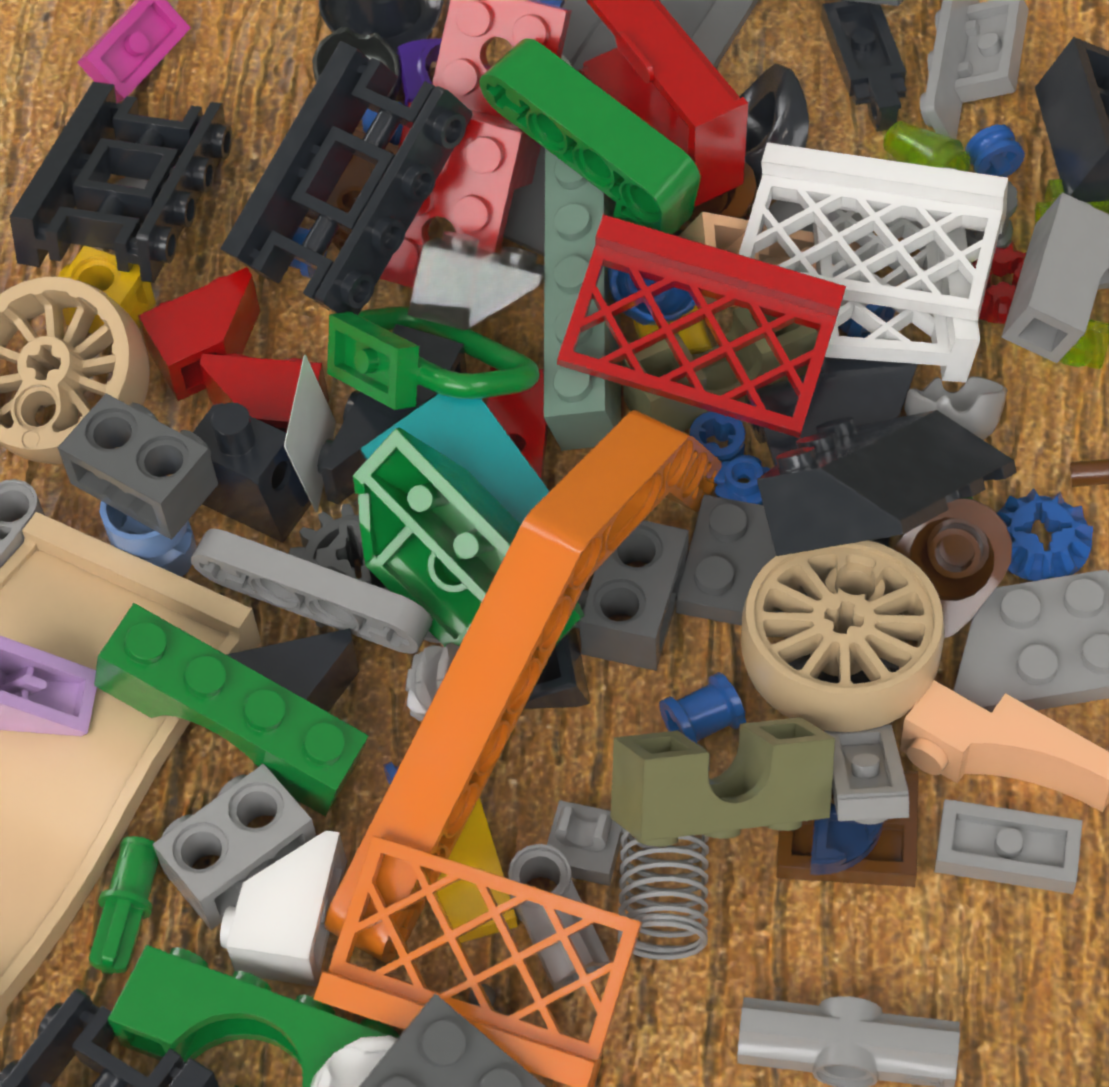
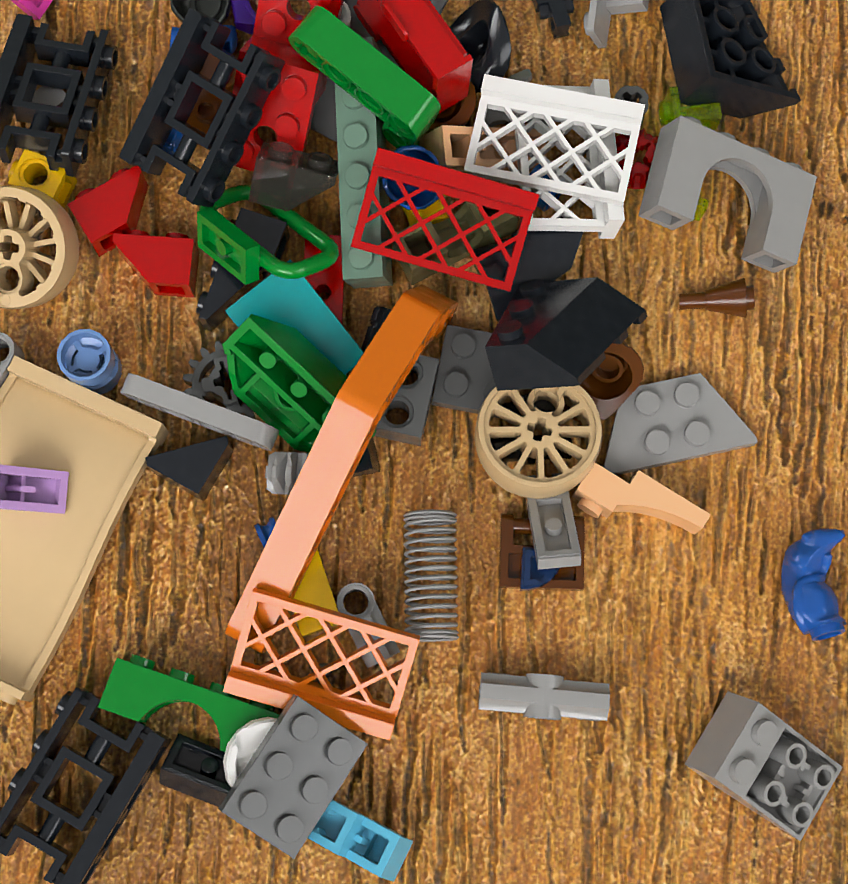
camera: 10 degrees left, 20 degrees up
(124, 906) = (100, 622): green axle -> none
(134, 473) = (76, 337): dark grey brick -> none
(182, 677) = (155, 496): green arch -> none
(223, 832) = (172, 589): light grey brick -> none
(252, 472) = (147, 317): black torso -> none
(282, 913) = (200, 626): white slope -> none
(308, 430) = (189, 291): white sticker -> none
(587, 841) = (381, 568): light grey tile -> none
(704, 710) = (451, 481): blue bush -> none
(723, 429) = (458, 296): blue bush -> none
(741, 467) = (482, 309): blue plate -> none
(773, 782) = (436, 561): olive arch -> none
(924, 147) = (587, 60): clear neon green cone -> none
(974, 406) = (609, 261): light grey hair -> none
(995, 151) = (632, 59): blue bush -> none
(1009, 846) = (638, 565): light grey plate -> none
(1068, 545) = (675, 358): blue gear -> none

